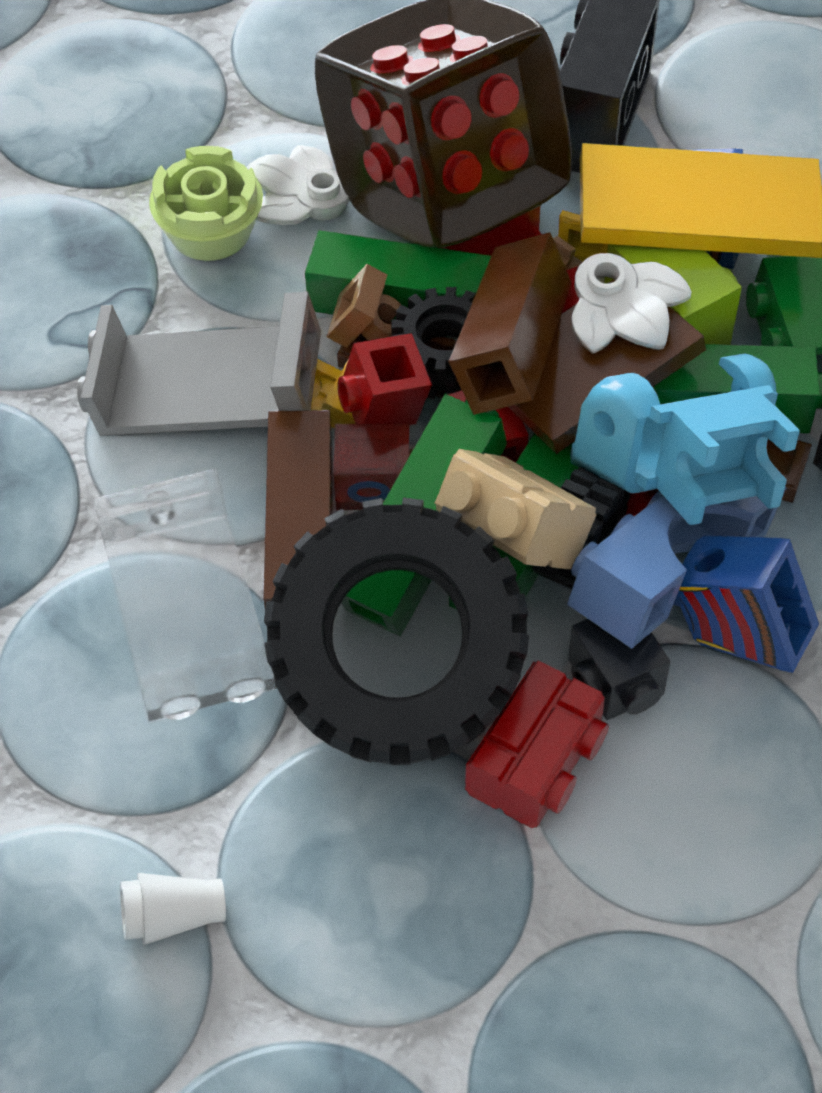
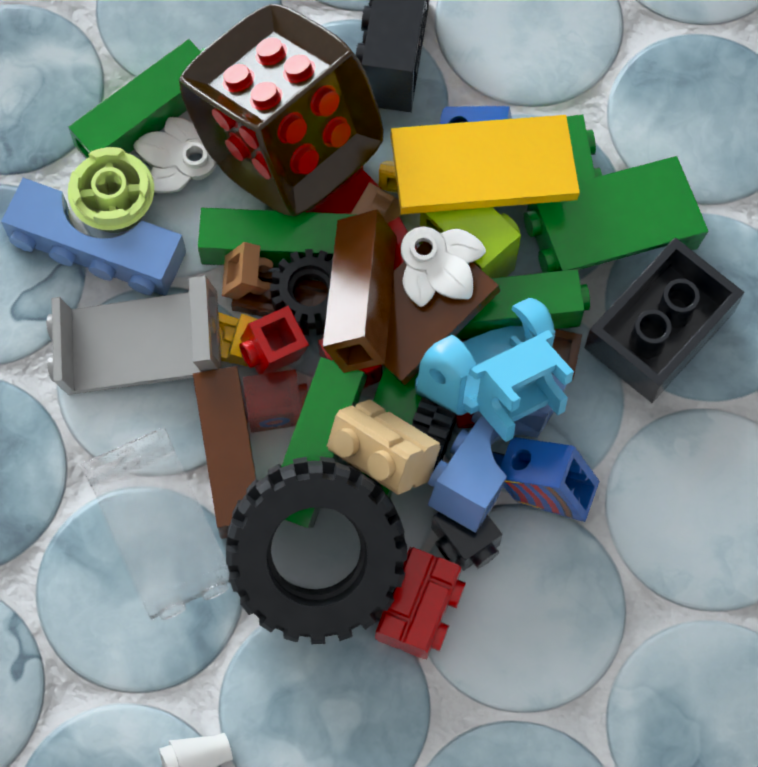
camera: 10 degrees left, 15 degrees up
(227, 283) = (142, 257): none -> medium blue arch
(258, 123) = (136, 107): none -> green brick

